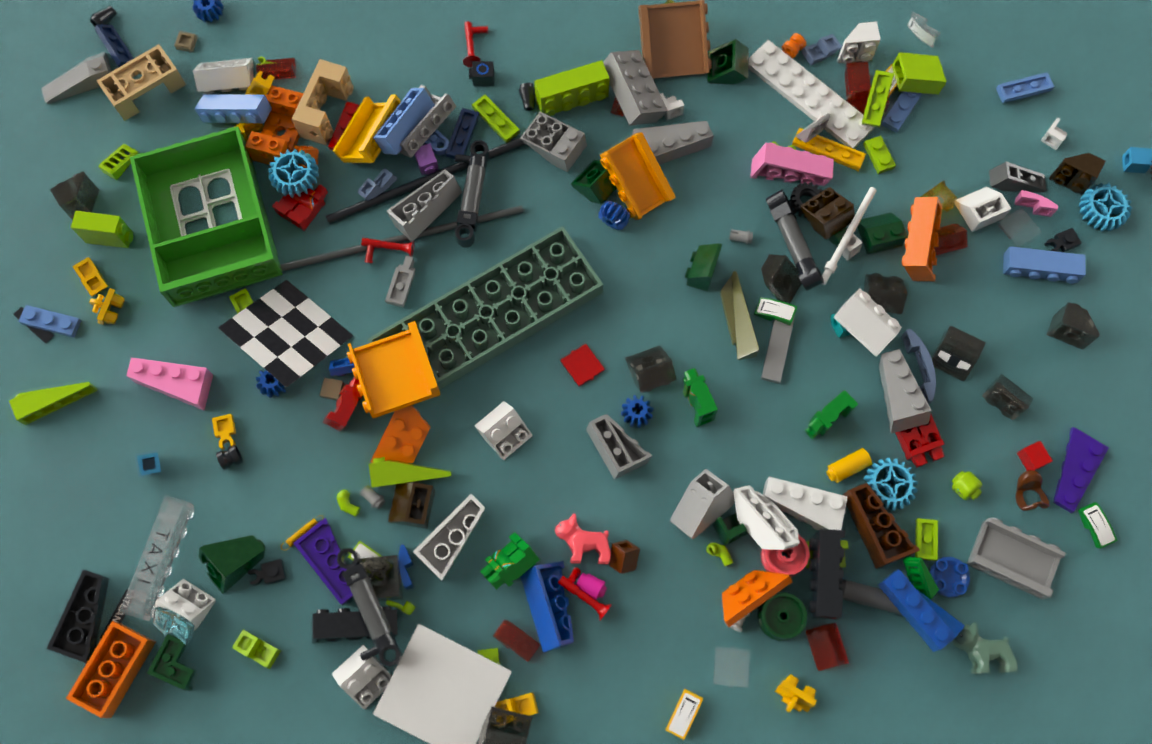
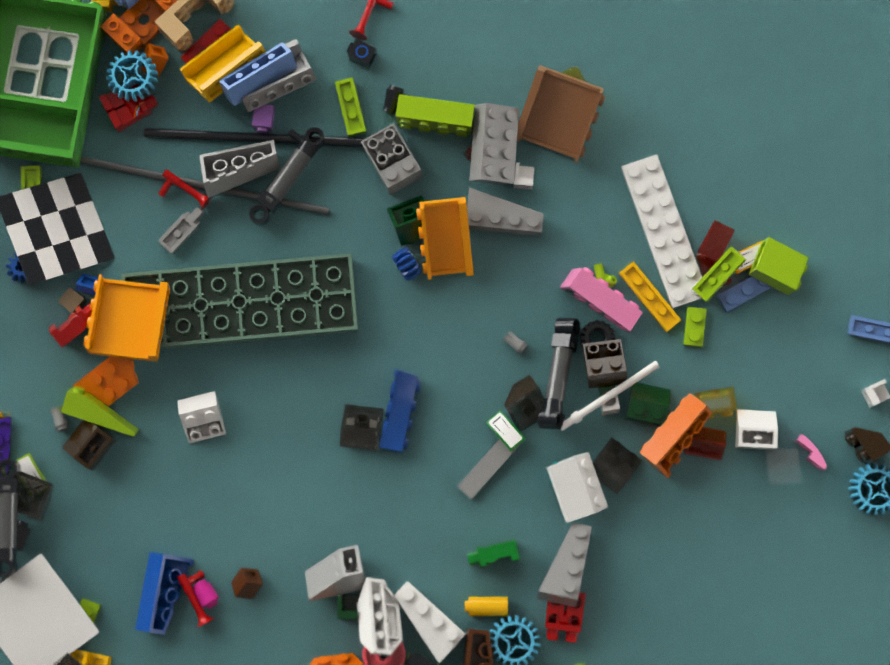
camera: 30 degrees right, 10 degrees up
(344, 503) = (32, 413): lime arm -> none
(374, 188) = (203, 122): sand blue slope -> none
(404, 563) = (59, 489): blue slope -> none
(407, 608) = (41, 532): lime hand -> none
(436, 140) = (284, 101): medium blue plate -> none
(447, 540) = (100, 493): white wedge -> none
(462, 133) = (311, 107): dark blue plate -> none
(509, 562) = (145, 538): green hips -> none
(516, 640) = (118, 606): clear red slope -> none
(582, 365) = (304, 391): red piece -> none
(583, 541) = (218, 552): coral animal -> none
(616, 447) = (290, 484): light grey wedge -> none
(644, 415) = (331, 466): blue gear -> none
(675, 336) = (399, 411): none -> blue wedge
(699, 397) = (388, 476): green hips -> none
(703, 266) = (461, 355): dark green slope -> none
(720, 551) = (333, 621): lime arm -> none
(728, 63) = (602, 161): dark green slope -> none
(738, 319) = (466, 420): olive wedge -> none
(794, 45) = (677, 173): orange wheel -> none
(813, 129) = (643, 271): light grey slope -> none
(822, 49) = (704, 190): sand blue slope -> none
(860, 43) = (739, 206): white slope -> none
(915, 344) = (611, 527): sand blue slope -> none
(926, 34) = (813, 215): slope -> none
(957, 353) = (646, 556): clear smoke slope -> none
(1007, 397) = (666, 619): clear smoke slope -> none
(1016, 178) = (809, 419): dark grey slope -> none
(1044, 264) = (780, 514): medium blue brick -> none
(1064, 240) = (818, 501): black plate -> none
(1073, 326) = (765, 586): clear smoke slope -> none

